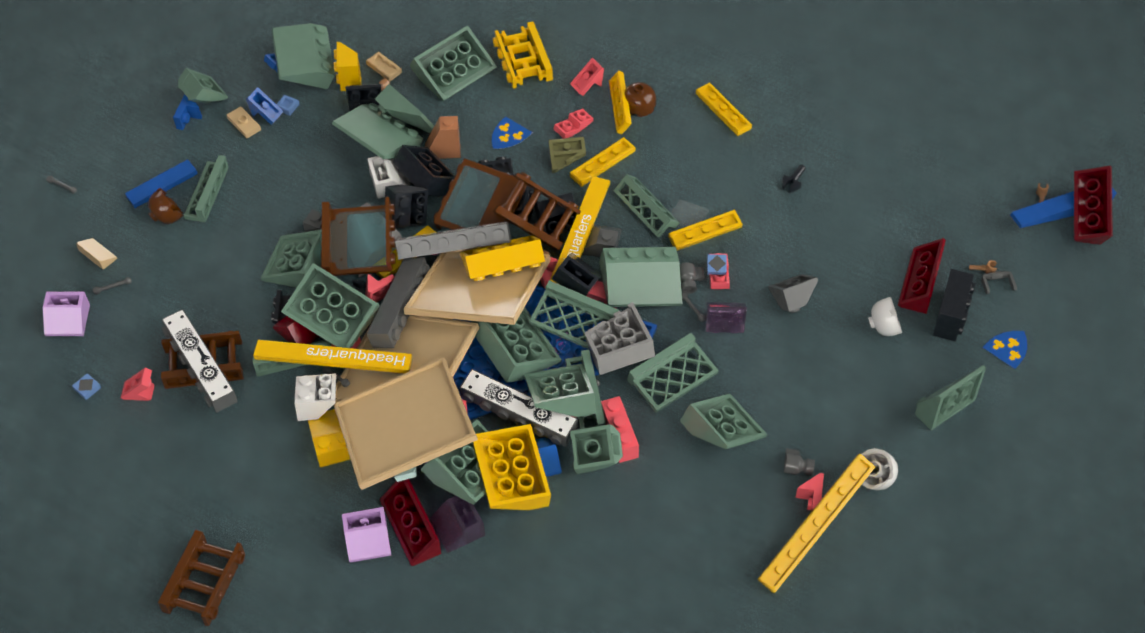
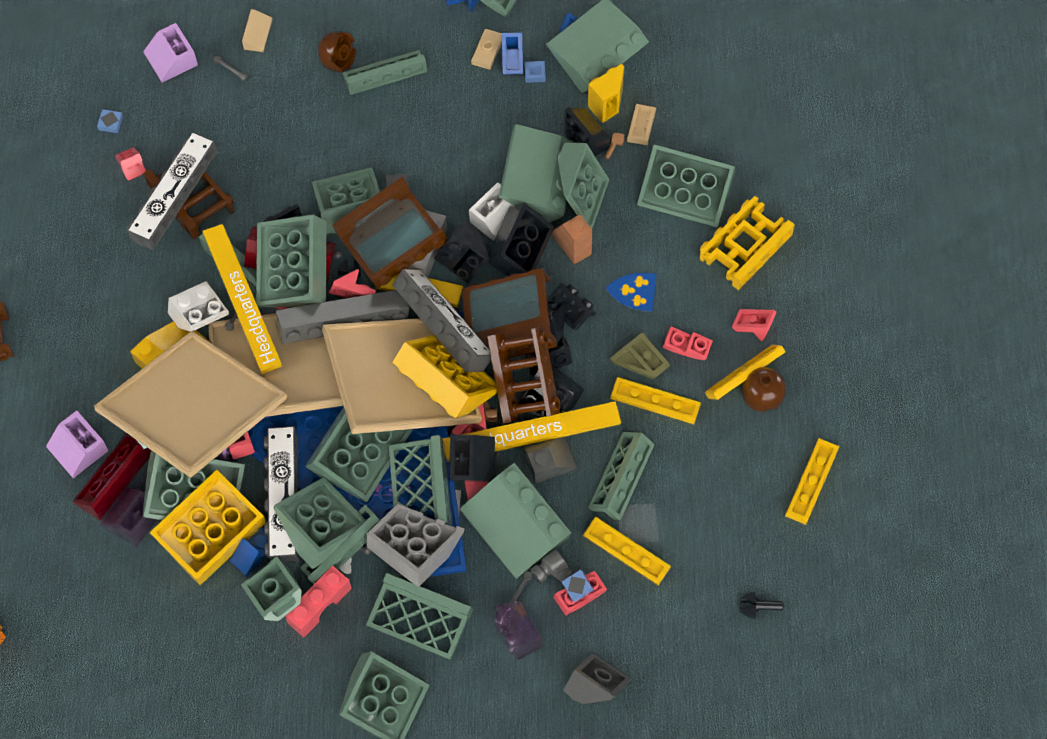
camera: 60 degrees right, 10 degrees up
(165, 181) = (369, 30): blue tile -> none

